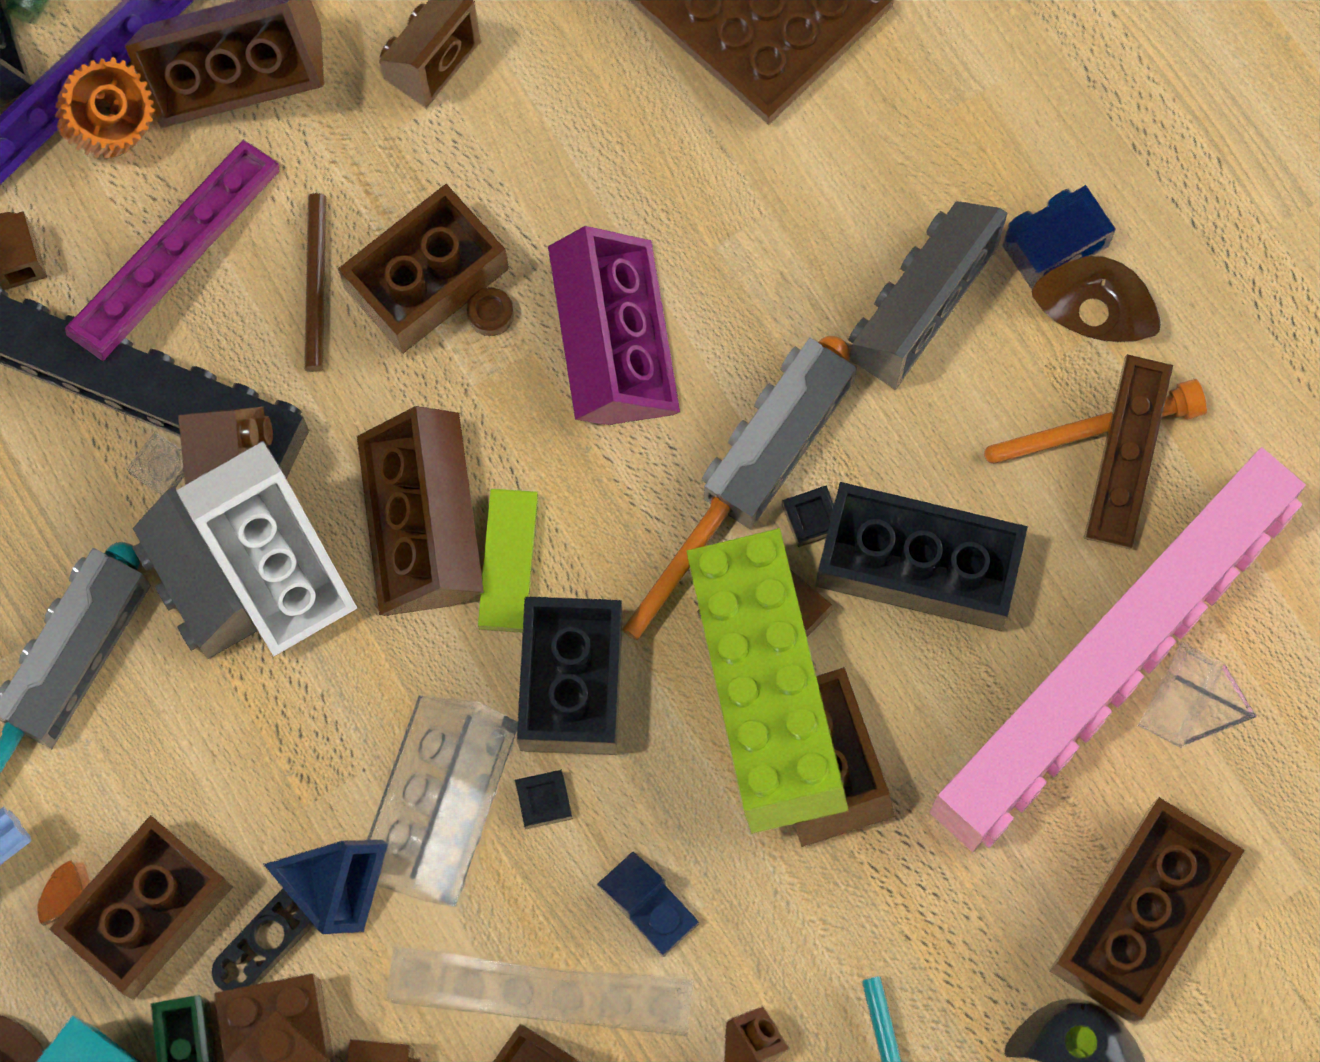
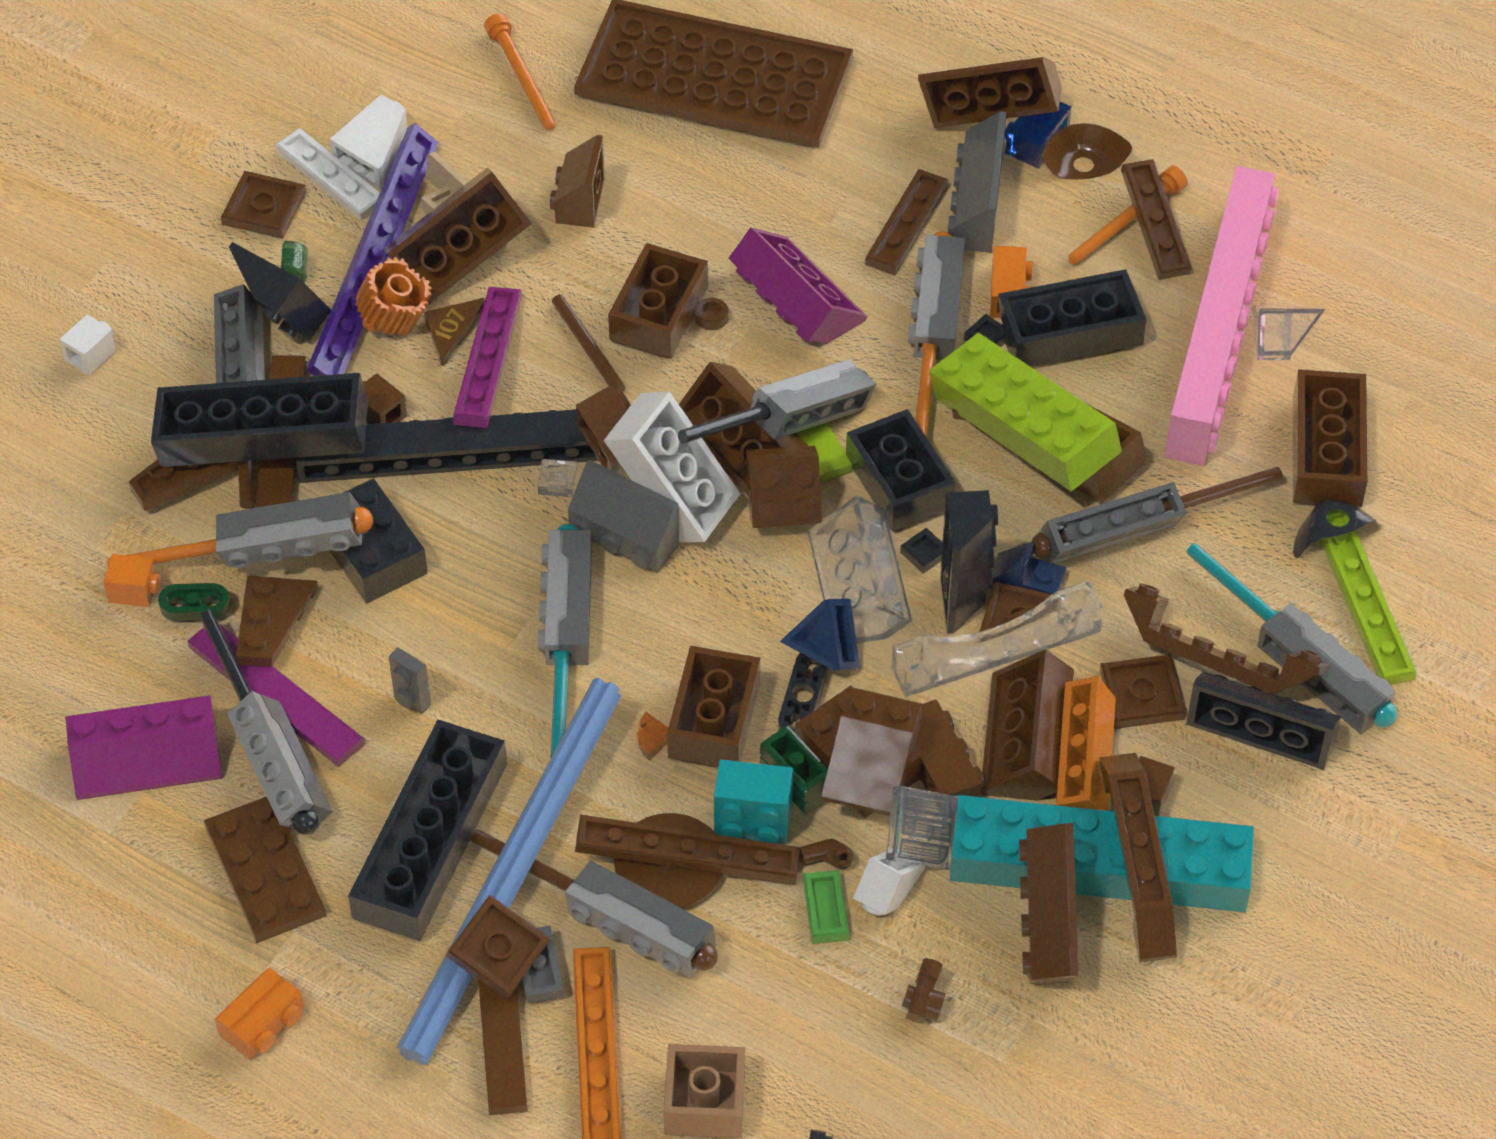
camera: 30 degrees left, 20 degrees down
(167, 173) = (451, 325): none -> reddish brown tile
(405, 633) = (784, 486): none -> reddish brown brick
(484, 523) = (797, 403): none -> dark grey piece
(545, 876) = (967, 554): none -> black slope
(599, 939) = (1009, 603): none -> reddish brown tile
(812, 292) = (906, 222): none -> reddish brown tile
(820, 898) = (1131, 517): none -> dark grey piece
(884, 448) = (1008, 273): none -> orange brick
(1019, 163) = (981, 91): none -> reddish brown slope

